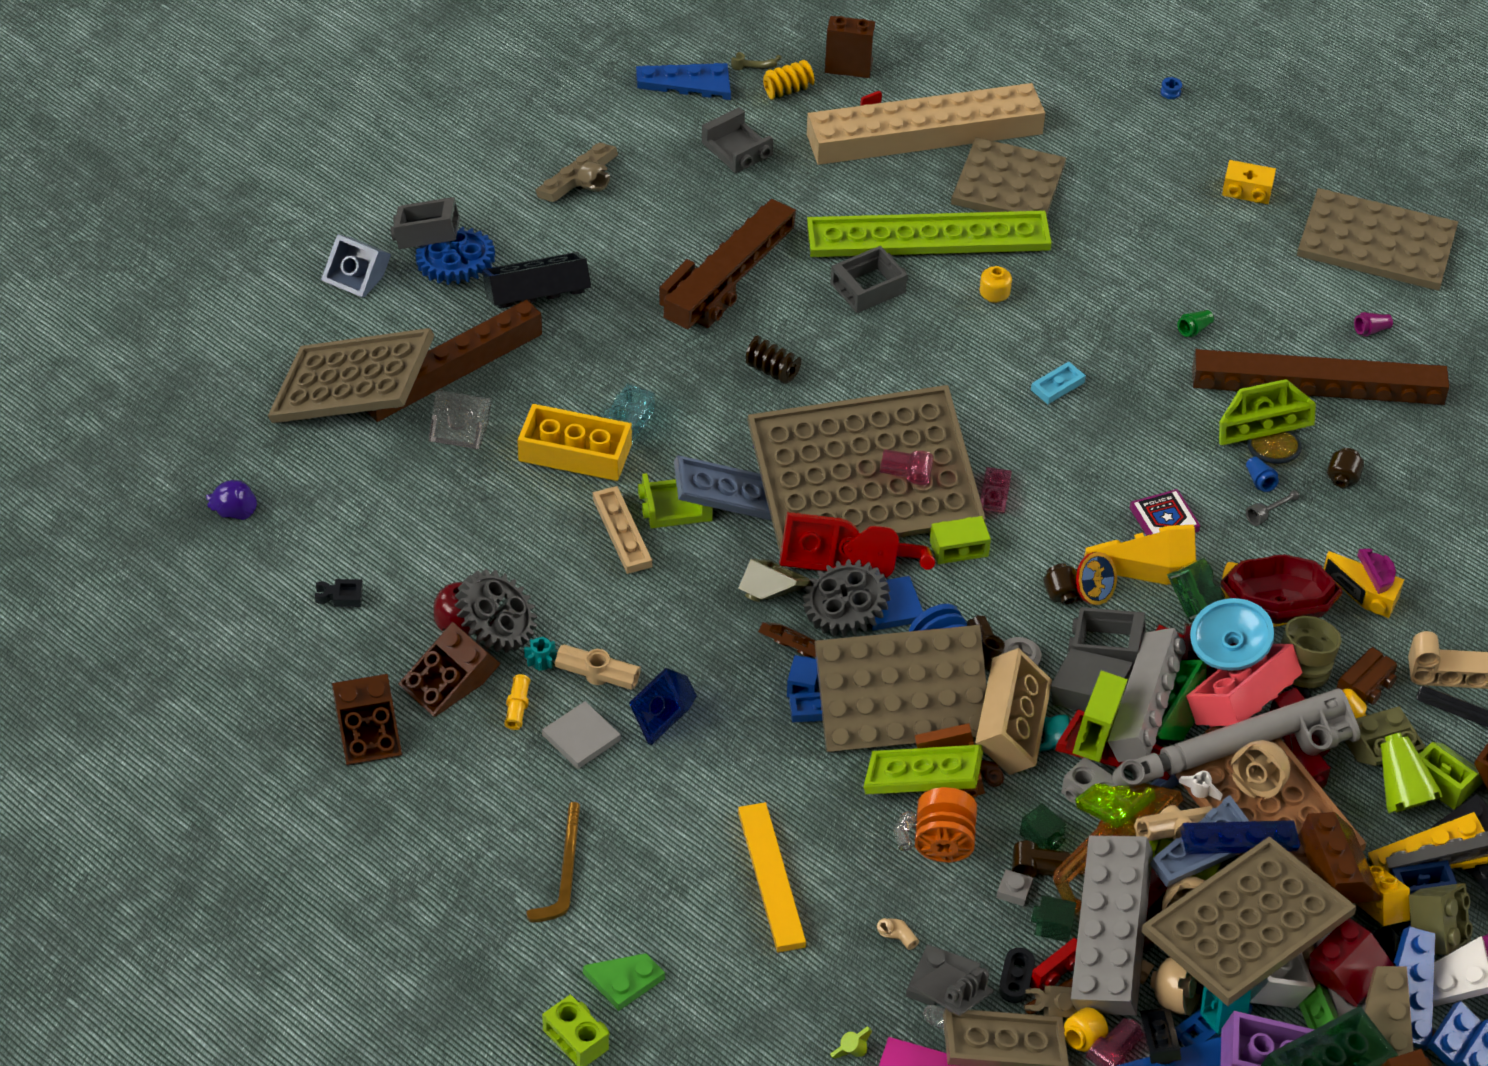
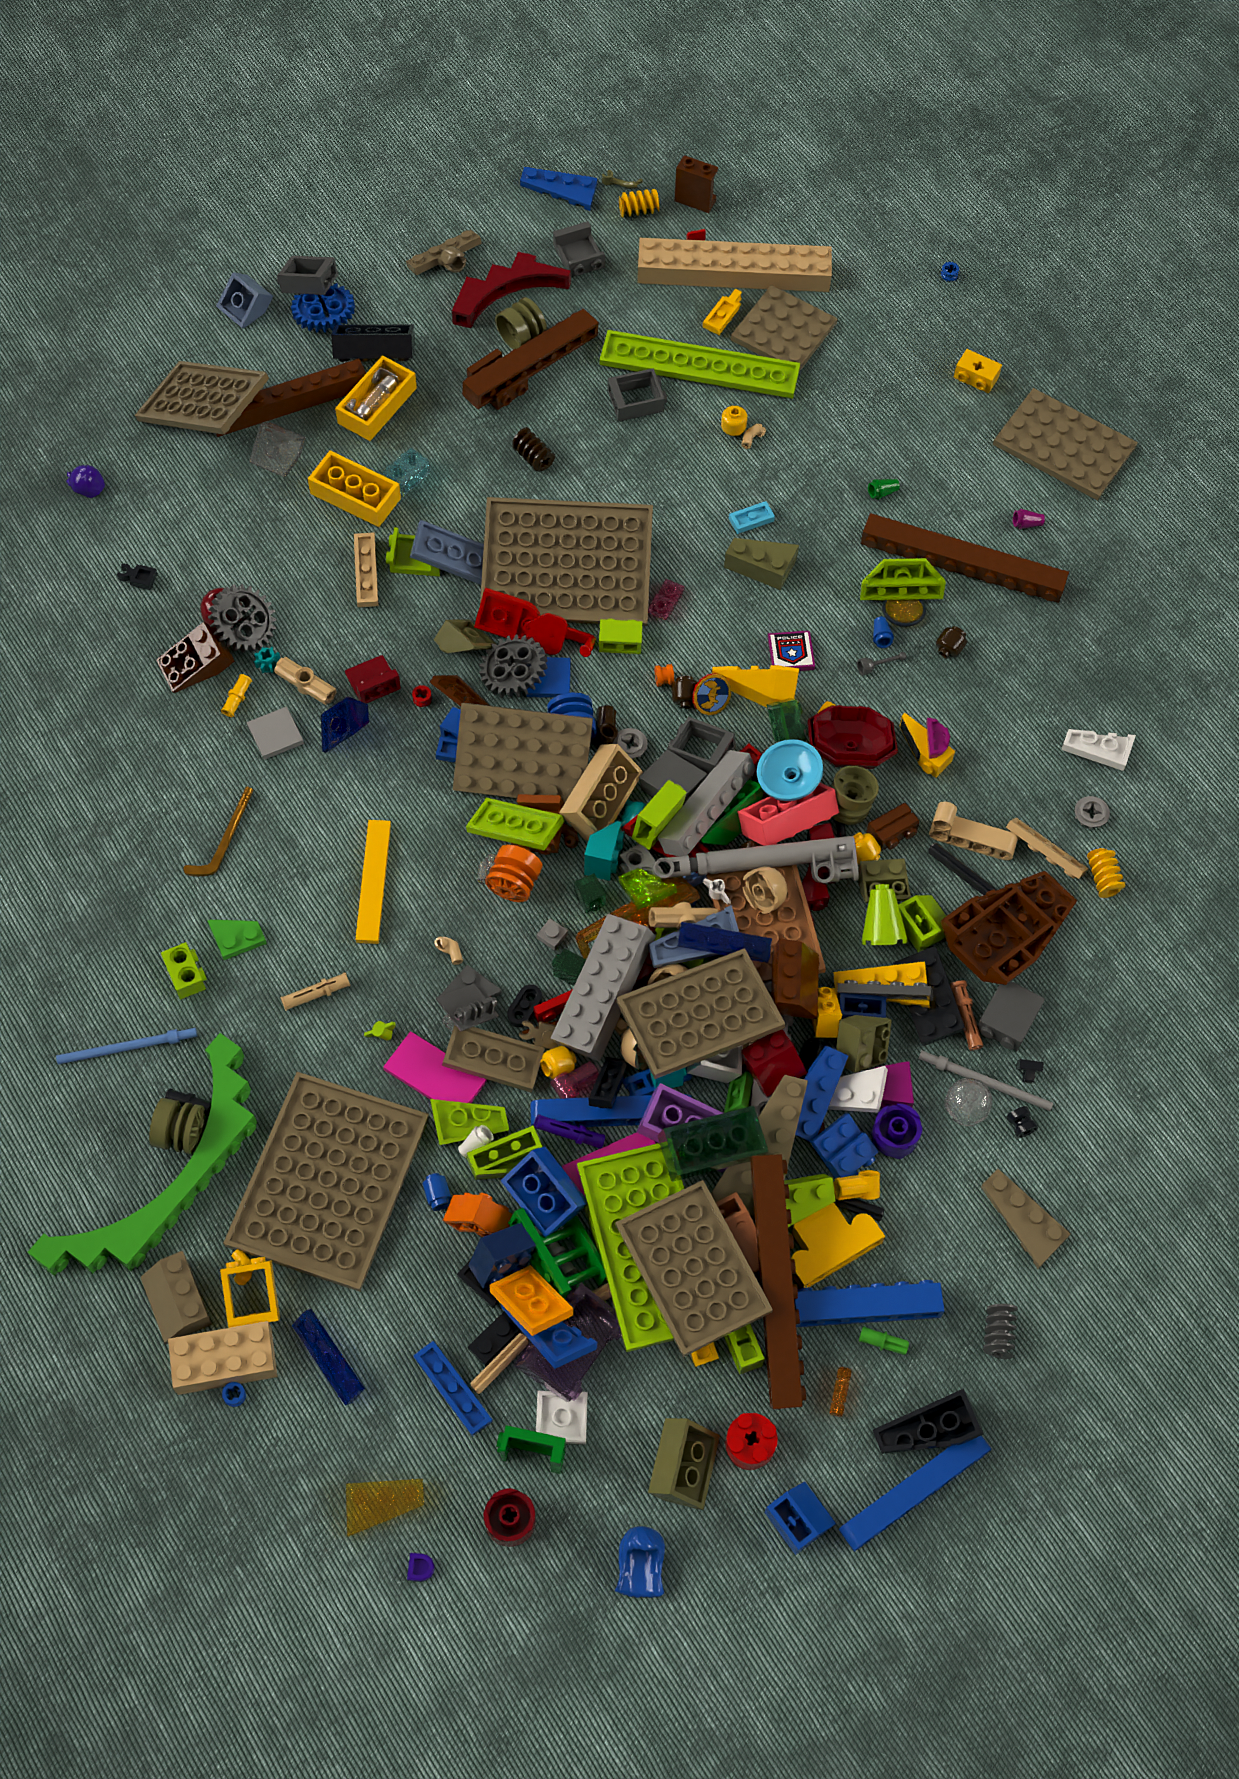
camera: 15 degrees right, 15 degrees up
(366, 719) = (120, 684): reddish brown slope -> none
(562, 339) = (376, 398): none -> yellow piece
(660, 189) = (501, 281): none -> dark red arch
(681, 647) = (373, 679): none -> dark red bracket
(704, 227) = (520, 323): none -> olive wheel
(745, 649) = (419, 701): none -> red bush
(761, 1011) = (315, 991): none -> tan pin
(914, 466) = (601, 568): clear pink piece -> none
(932, 176) = (723, 312): none -> yellow hinge
(1018, 295) = (749, 434): none -> tan arm
(1029, 571) = (664, 675): none -> orange wheel
(1031, 860) = (573, 916): dark brown piece -> none
(1044, 776) = (603, 851): none -> teal slope
(1090, 425) = (761, 560): none -> olive wedge

